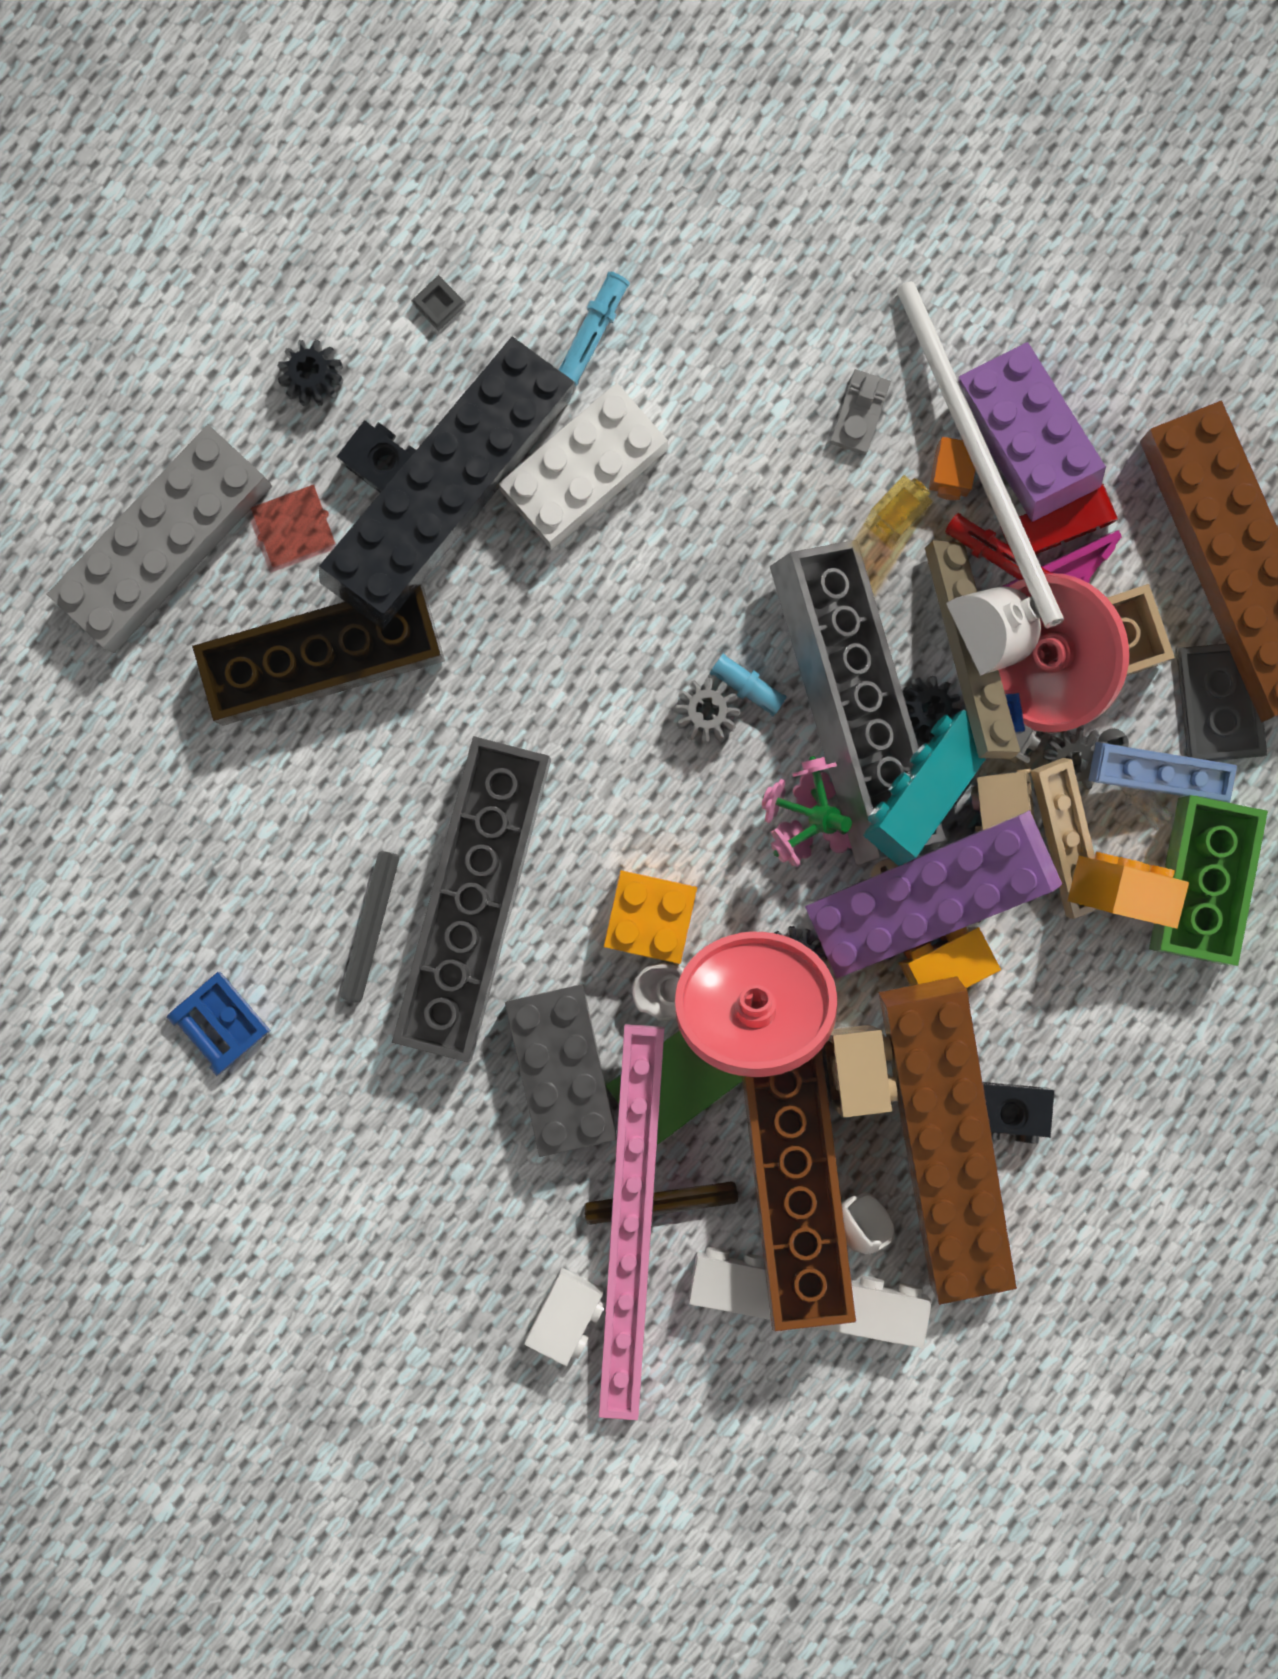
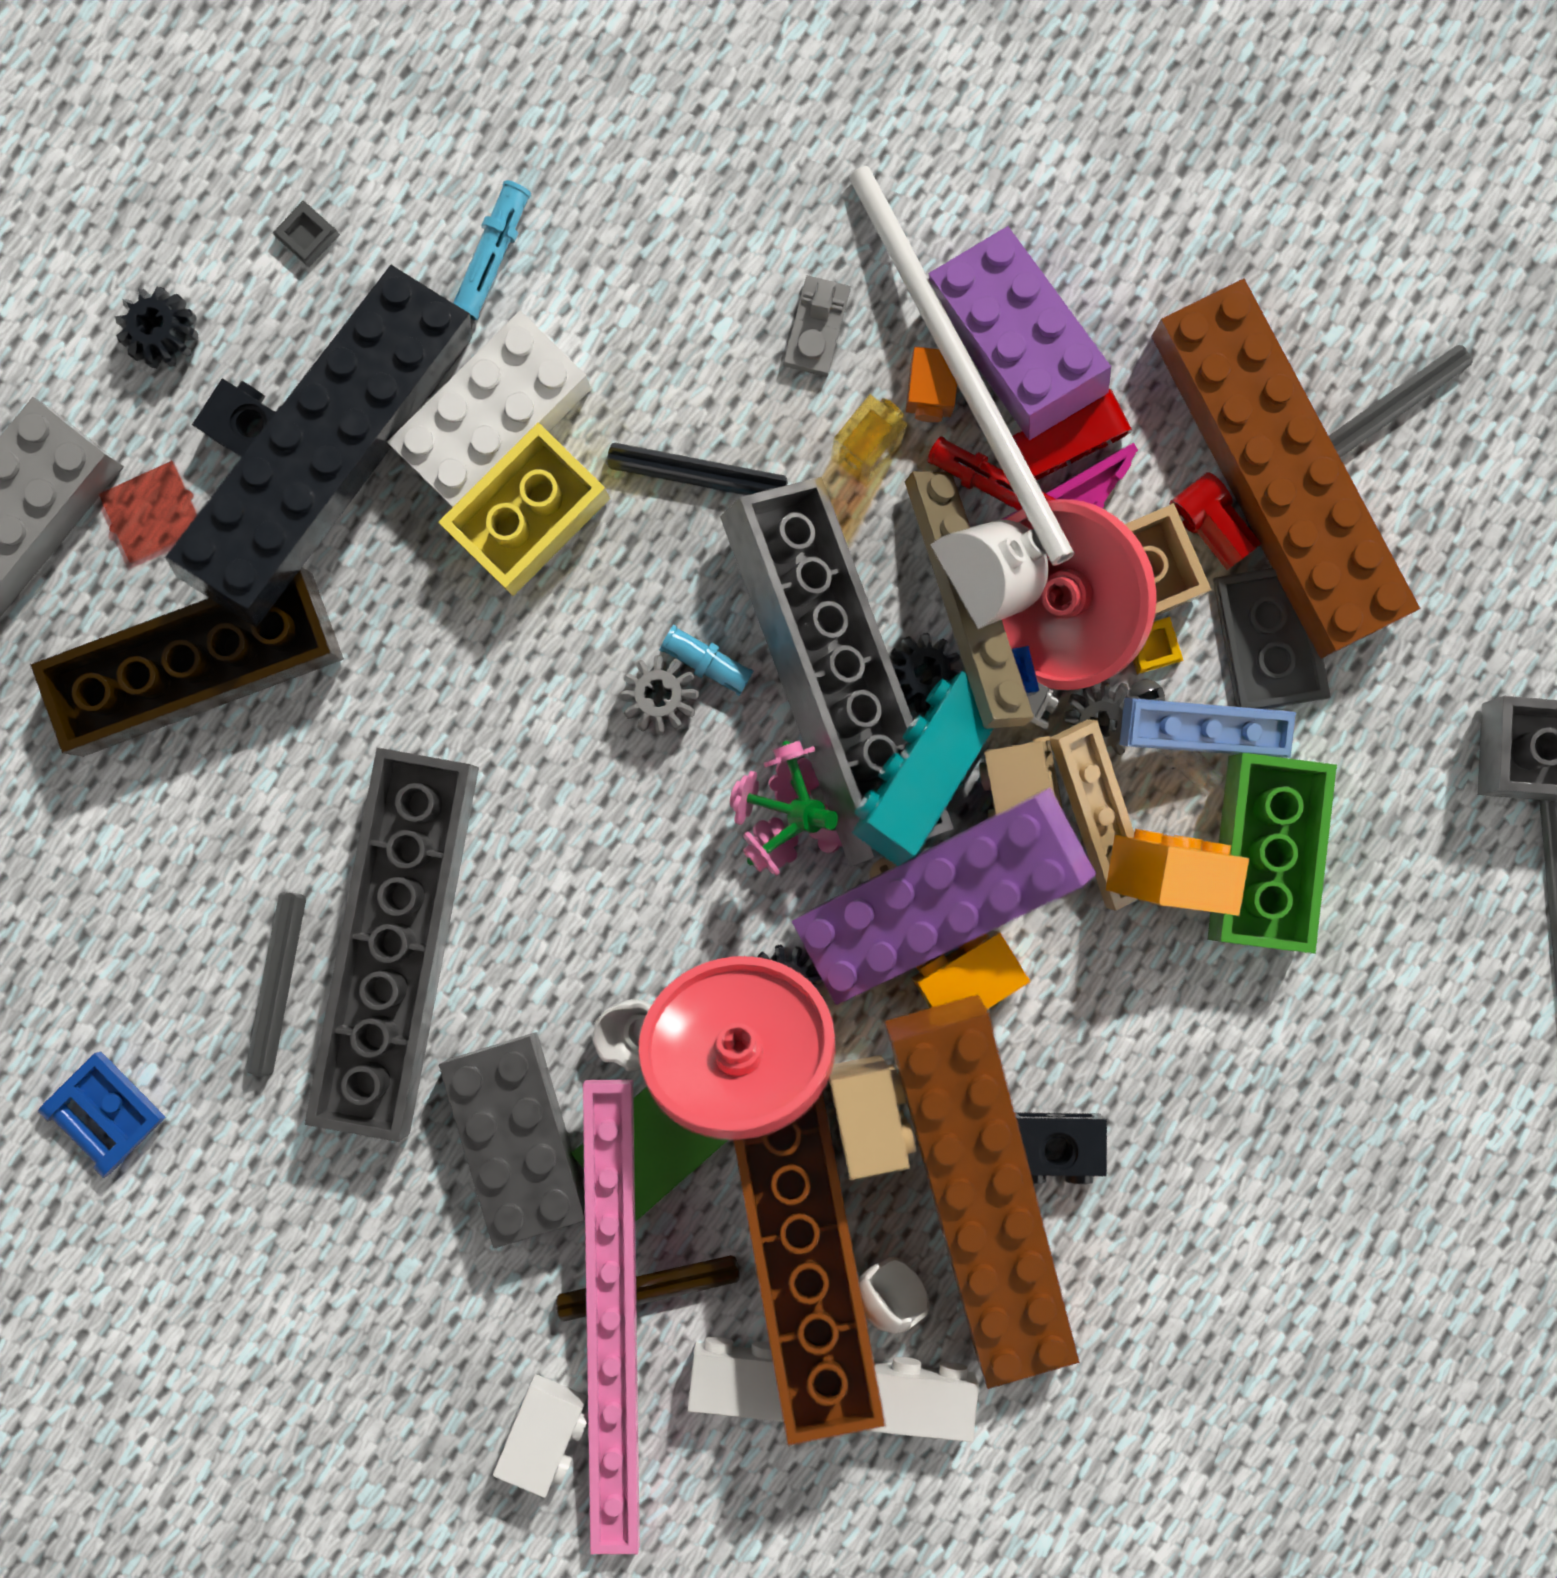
camera: 10 degrees left, 0 degrees up
(607, 547) = (525, 509): none -> light yellow brick
(650, 917) = (608, 948): light orange brick -> none
(748, 525) = (691, 470): none -> black axle
(1128, 703) = (1160, 648): none -> yellow tile
(1177, 593) = (1209, 513): none -> red piece

